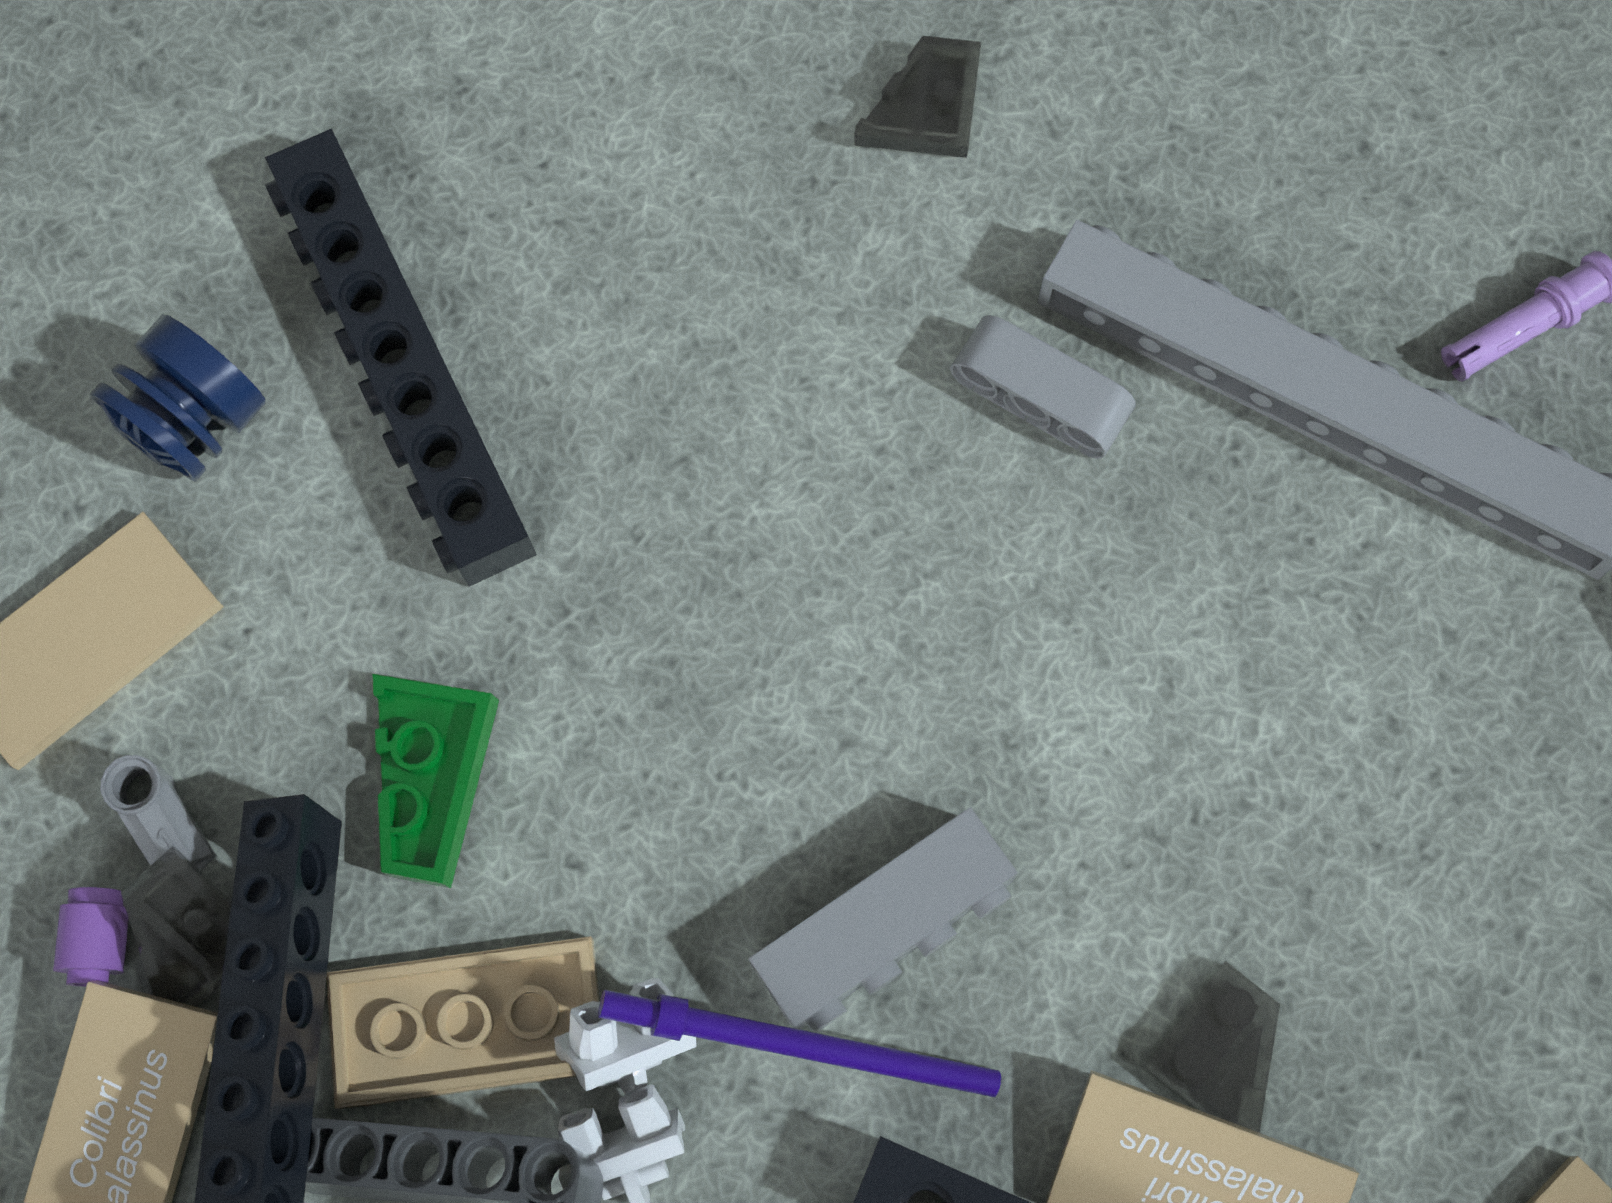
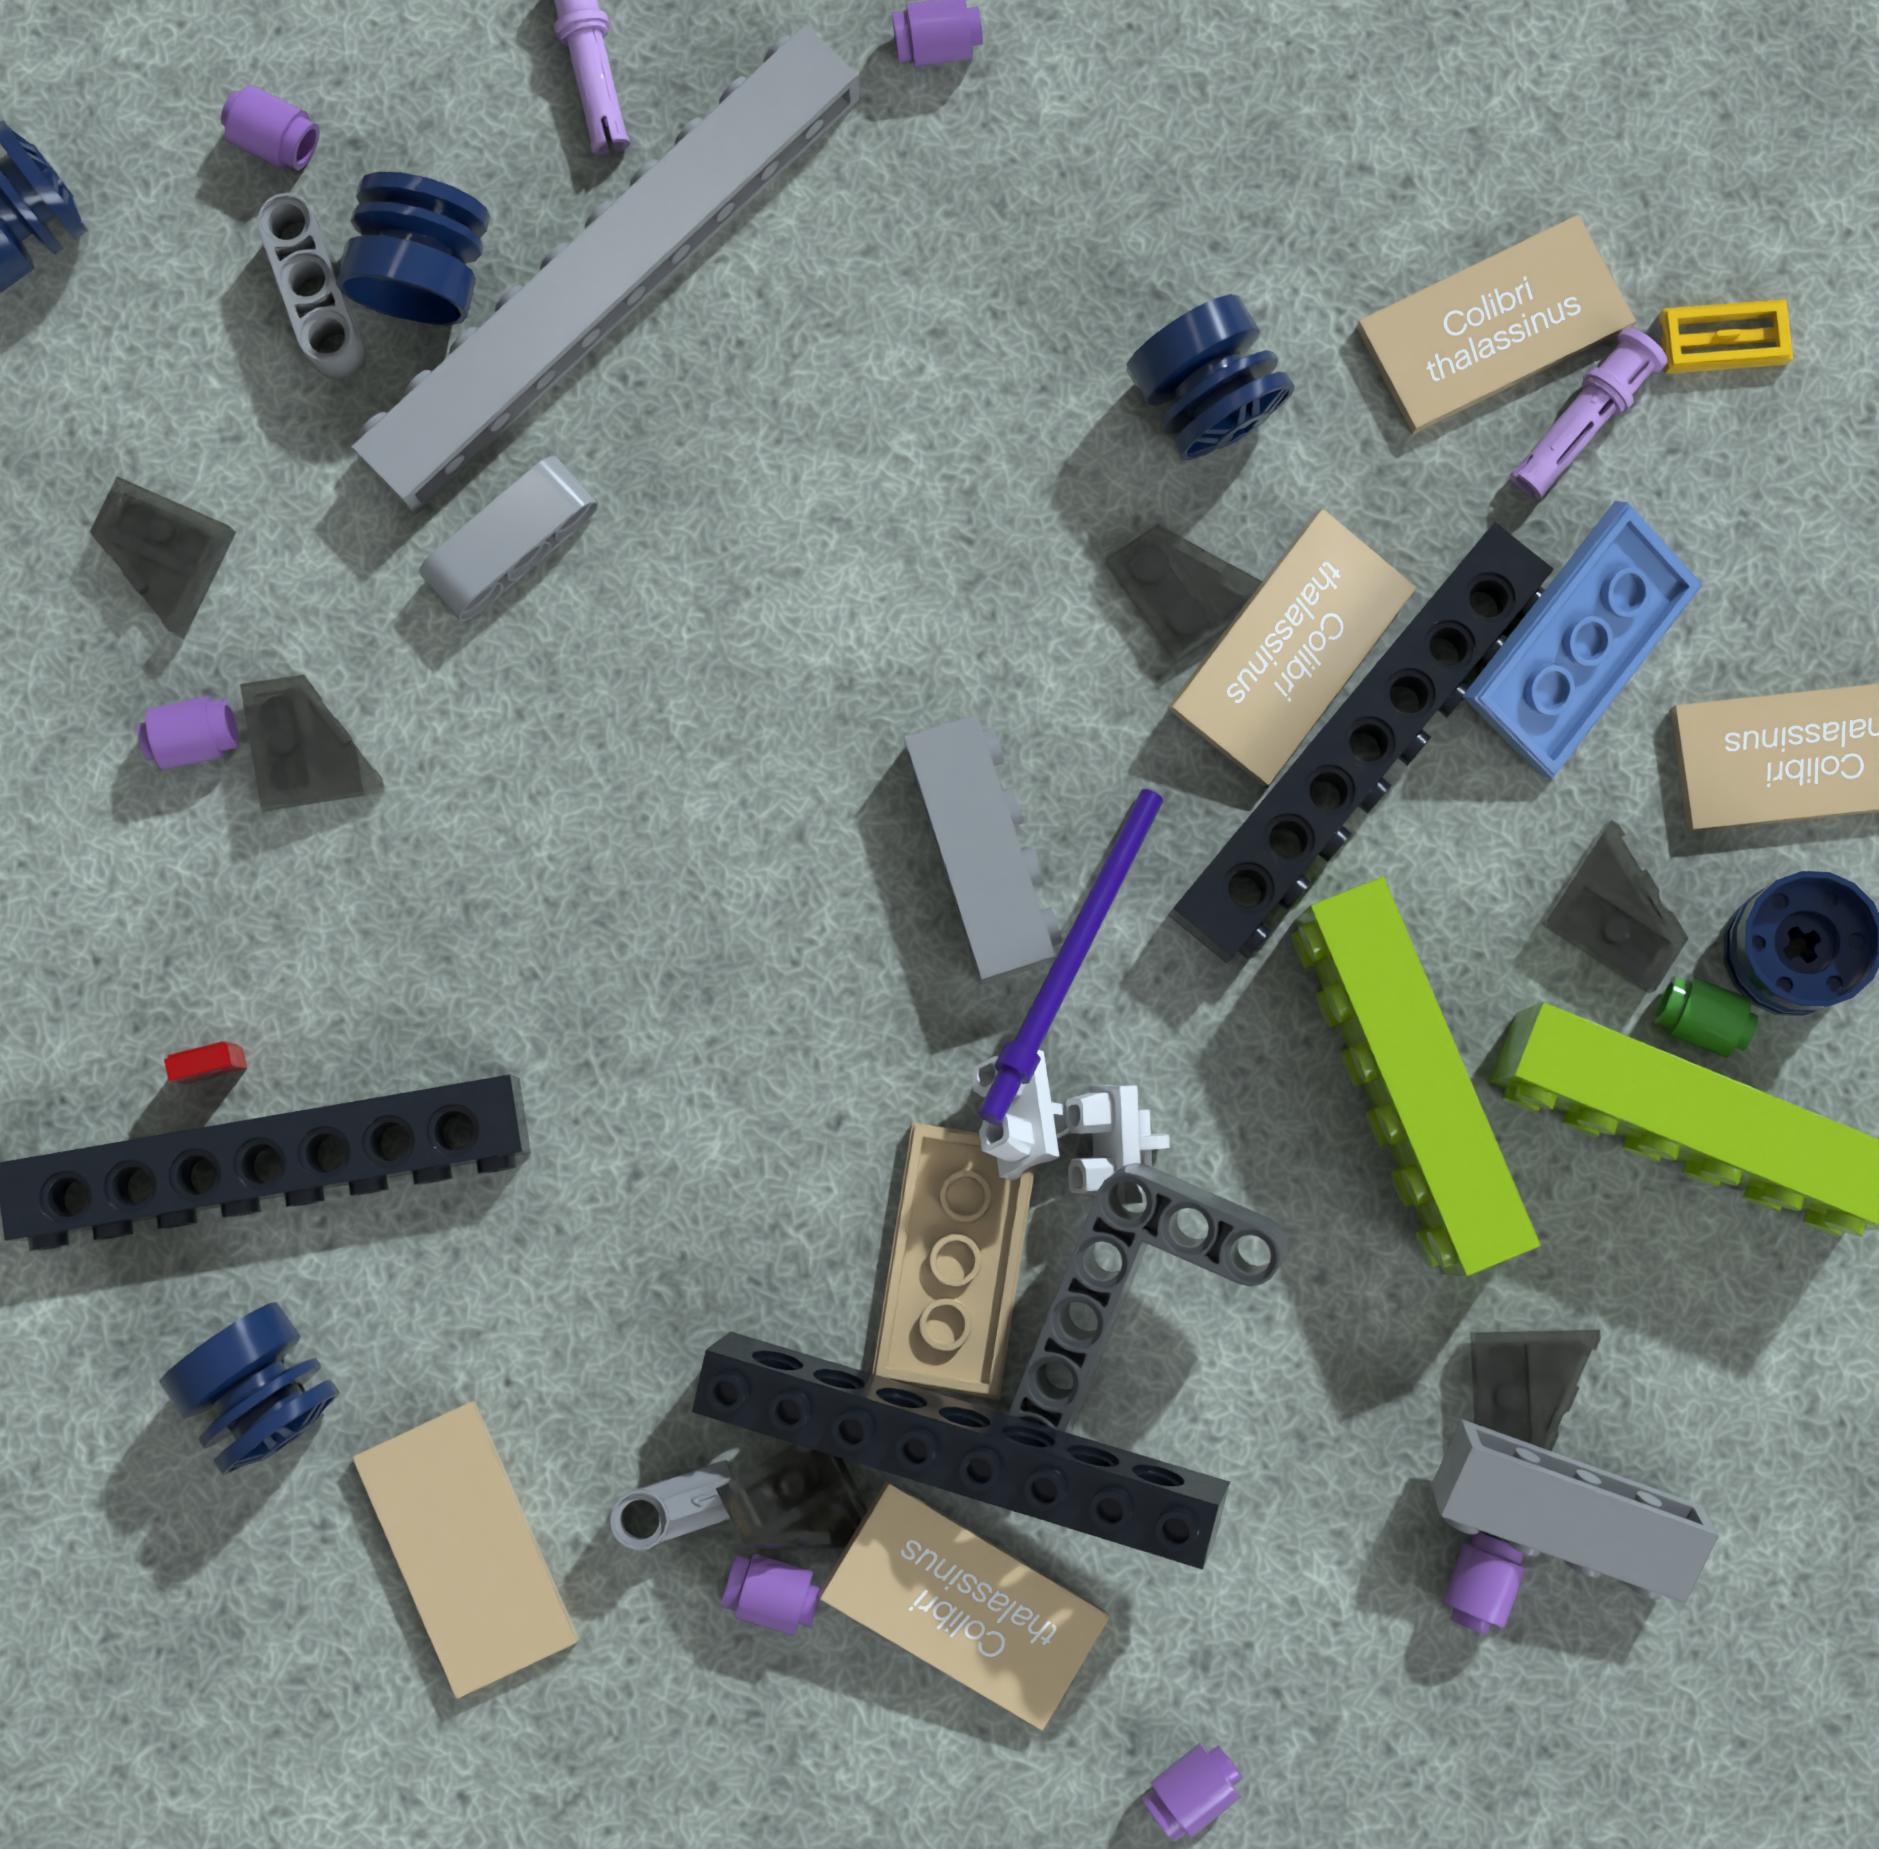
camera: 75 degrees left, 10 degrees up
(430, 768) = (709, 1235): green wing -> none
(472, 275) = (205, 1062): none -> red tile
(769, 171) = (188, 732): none -> medium lavender brick
(786, 269) = (301, 748): none -> clear smoke wing
(1225, 125) = (297, 263): none -> light grey beam
(1283, 214) = (413, 248): none -> dark blue wheel
(1348, 68) = (269, 128): none -> medium lavender brick
(1453, 1009) = (1203, 367): none -> dark blue wheel

